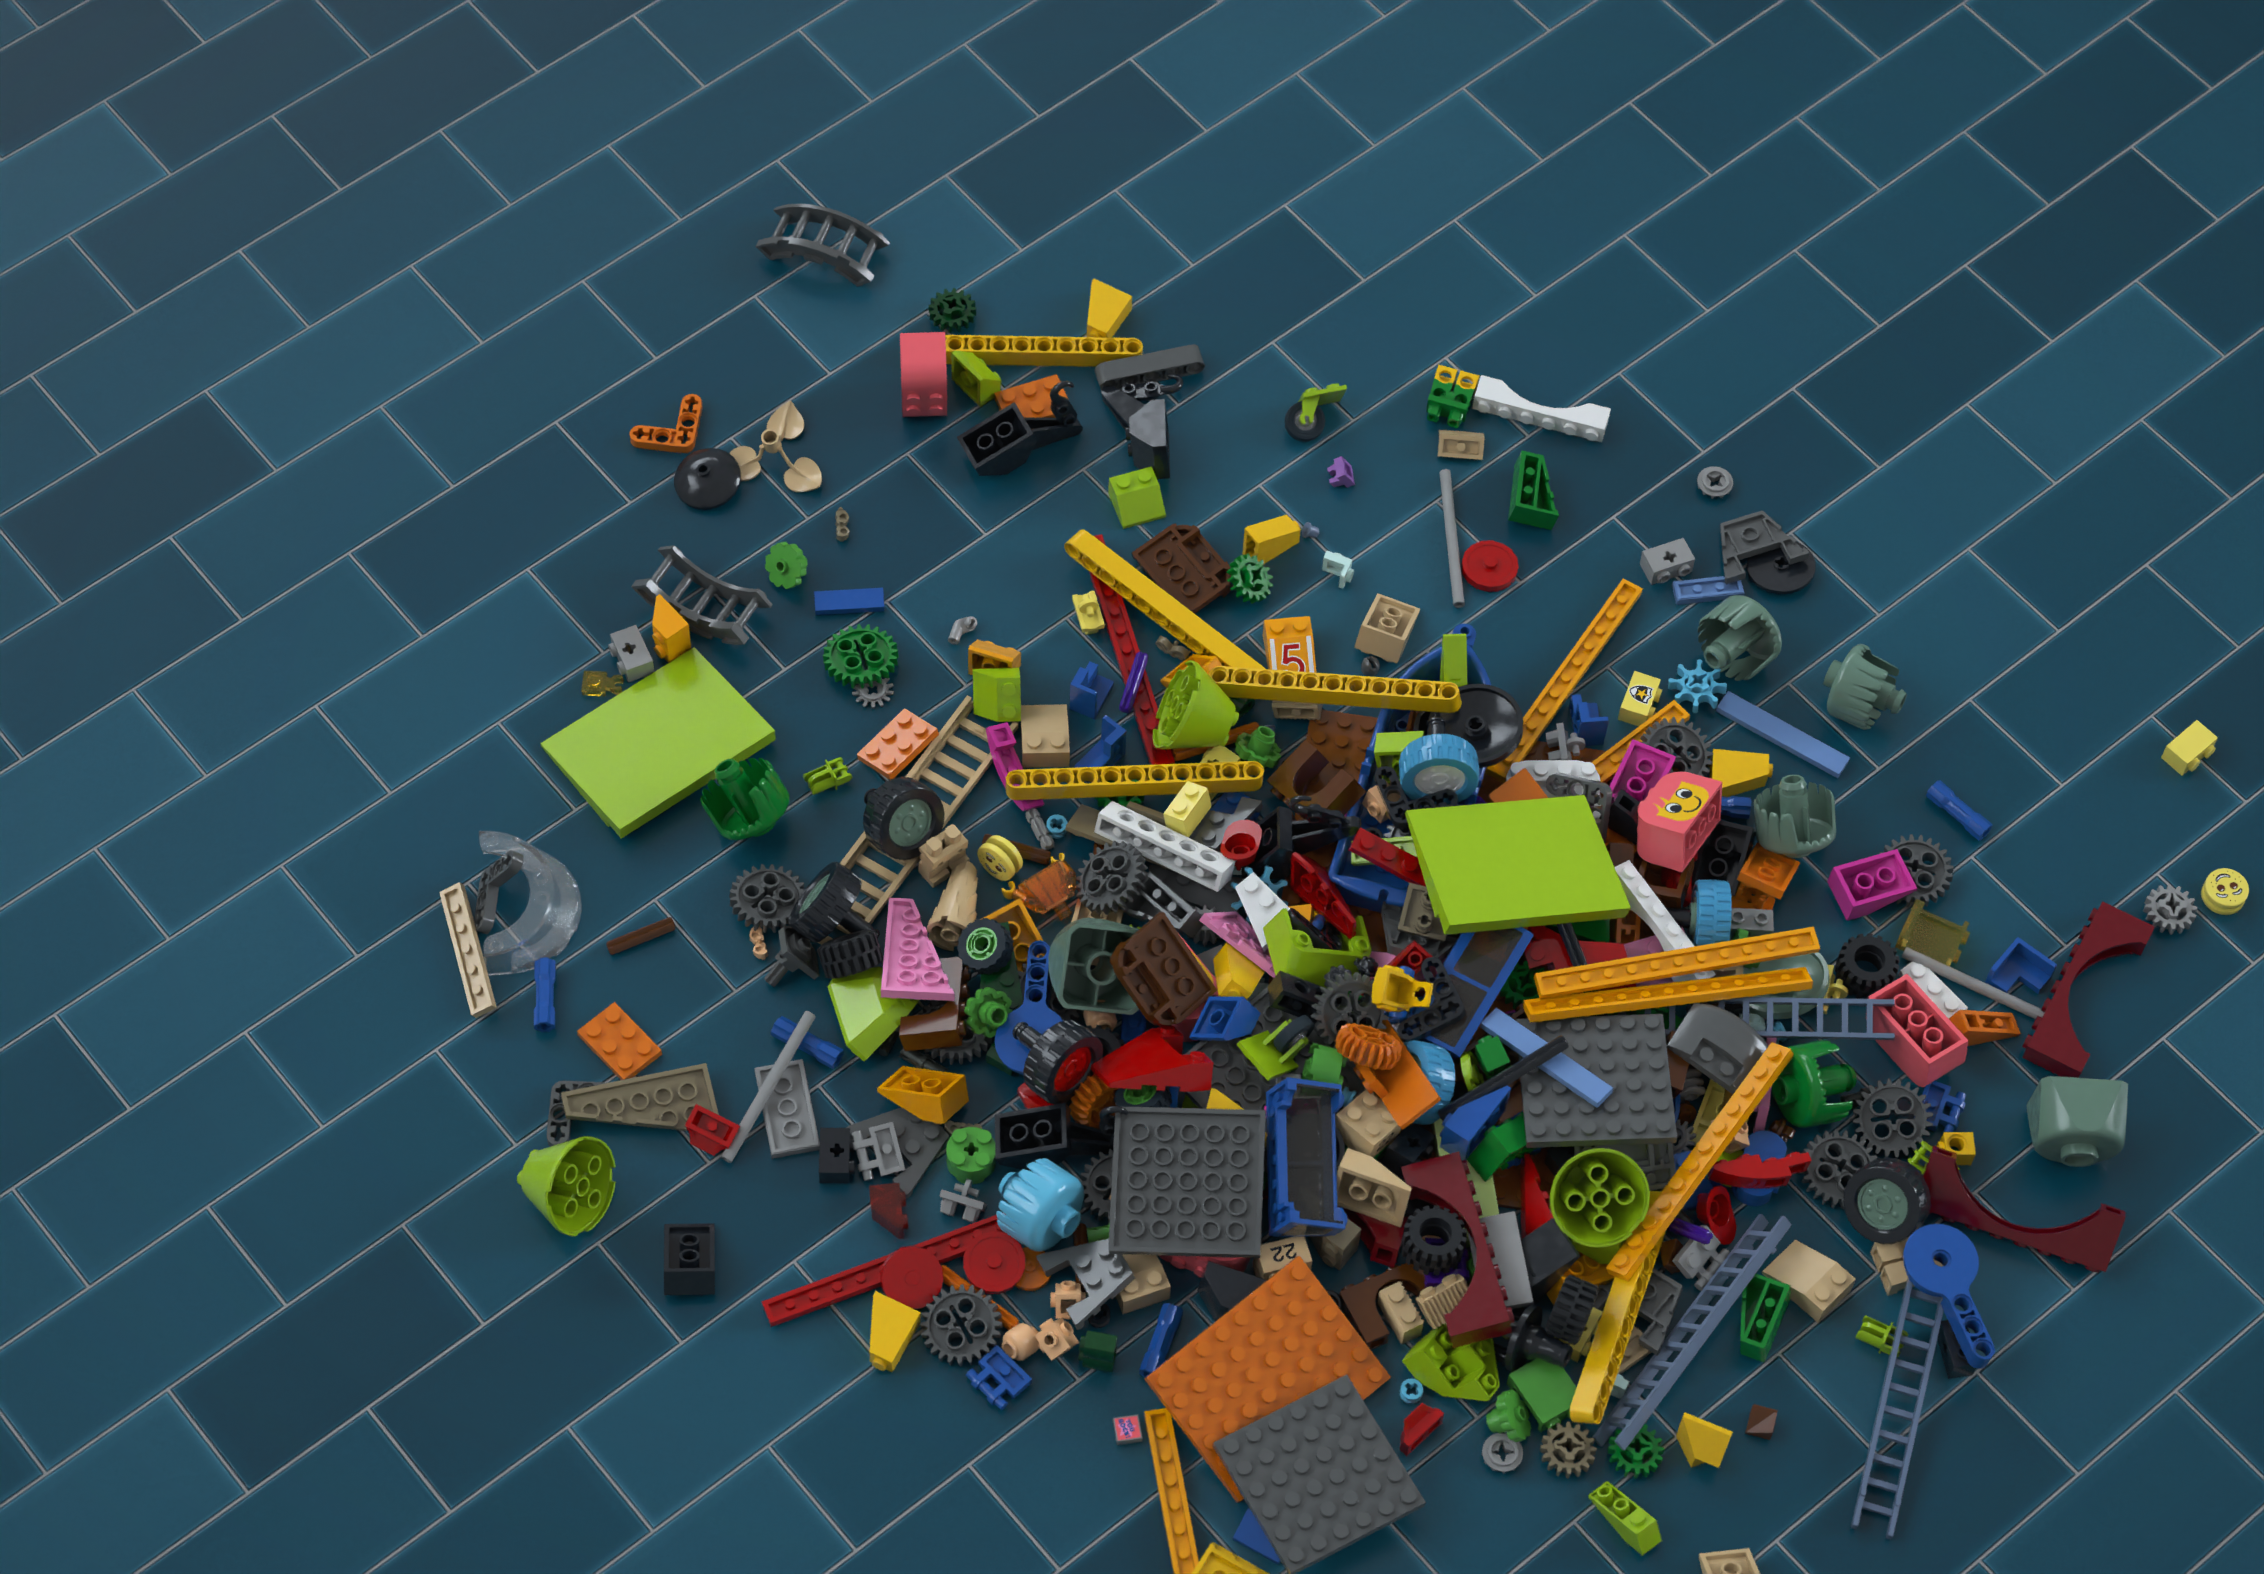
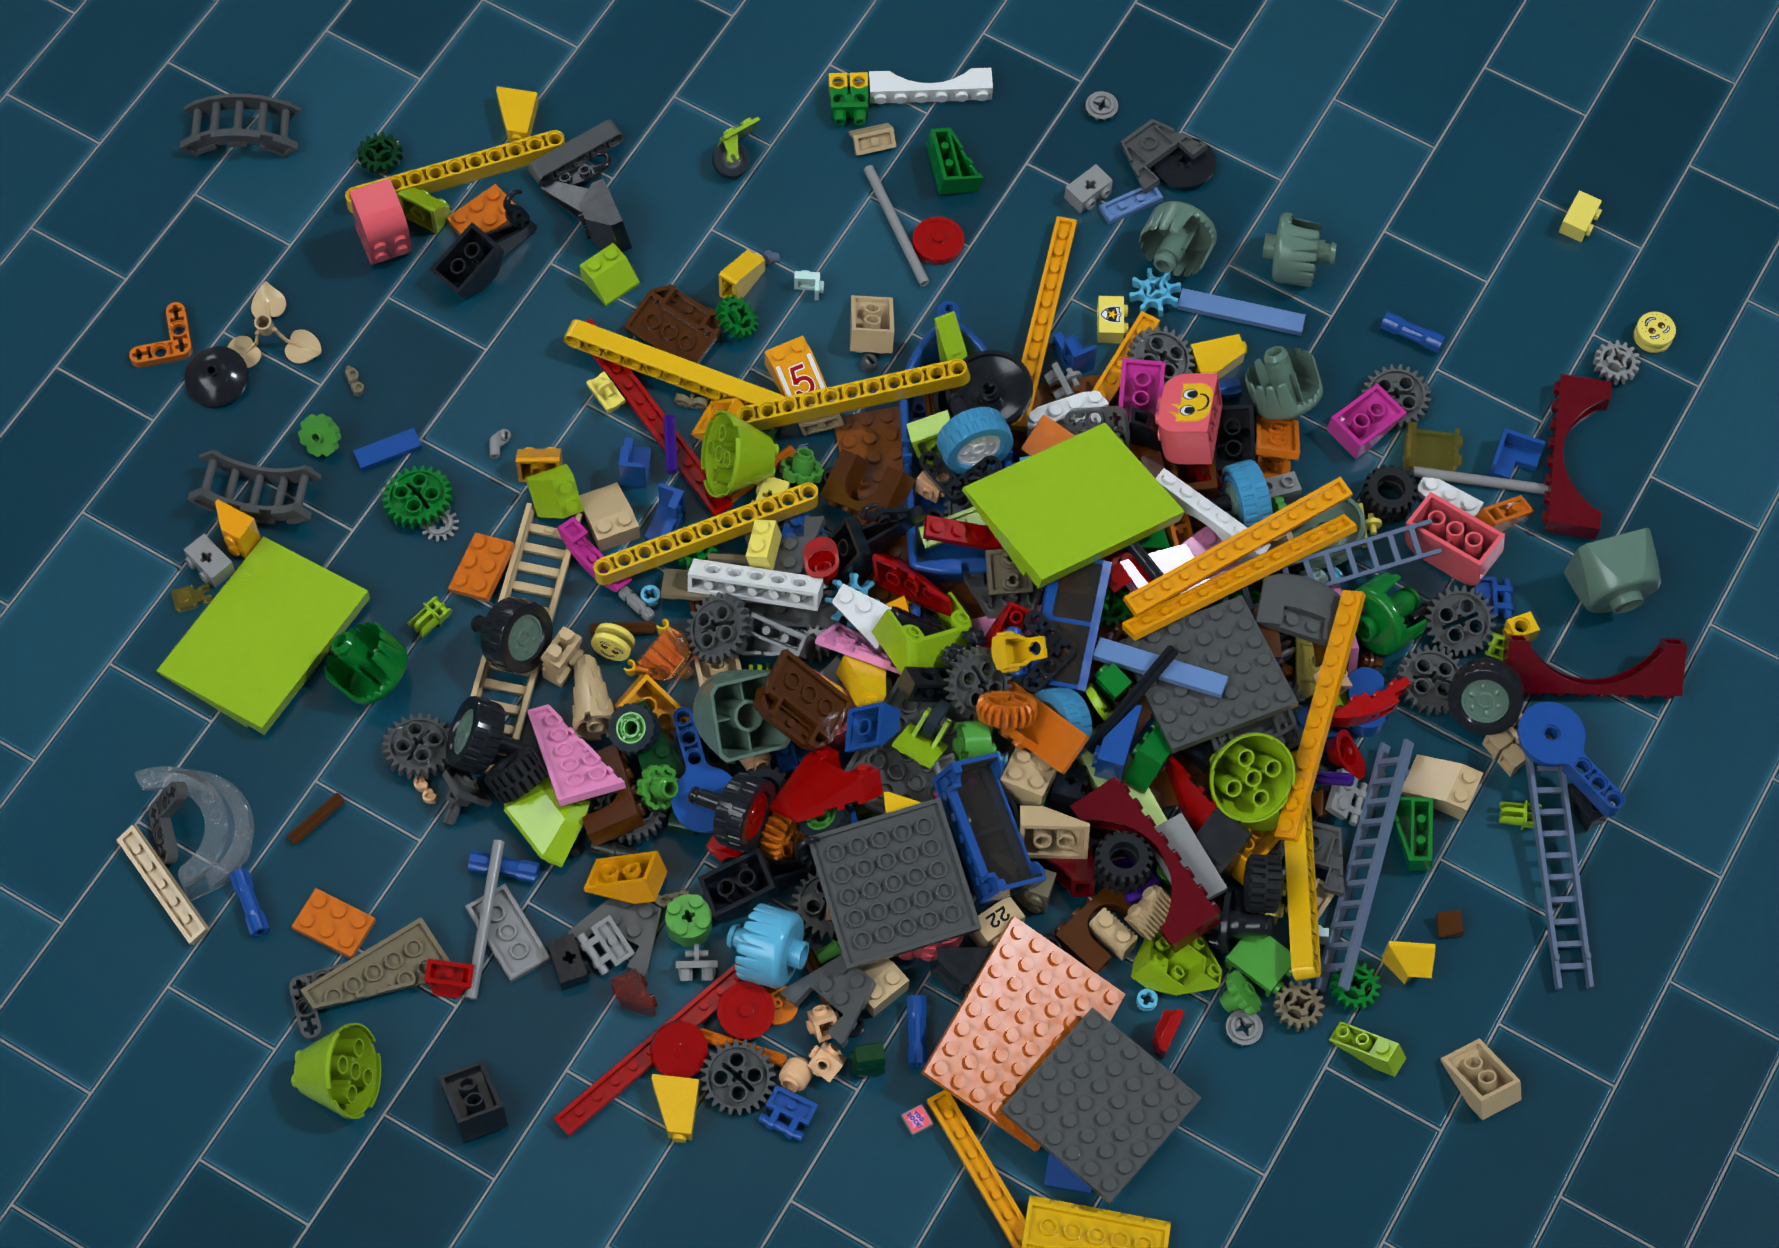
camera: 20 degrees left, 5 degrees up
(1343, 473) = (781, 195): medium lavender tile -> none

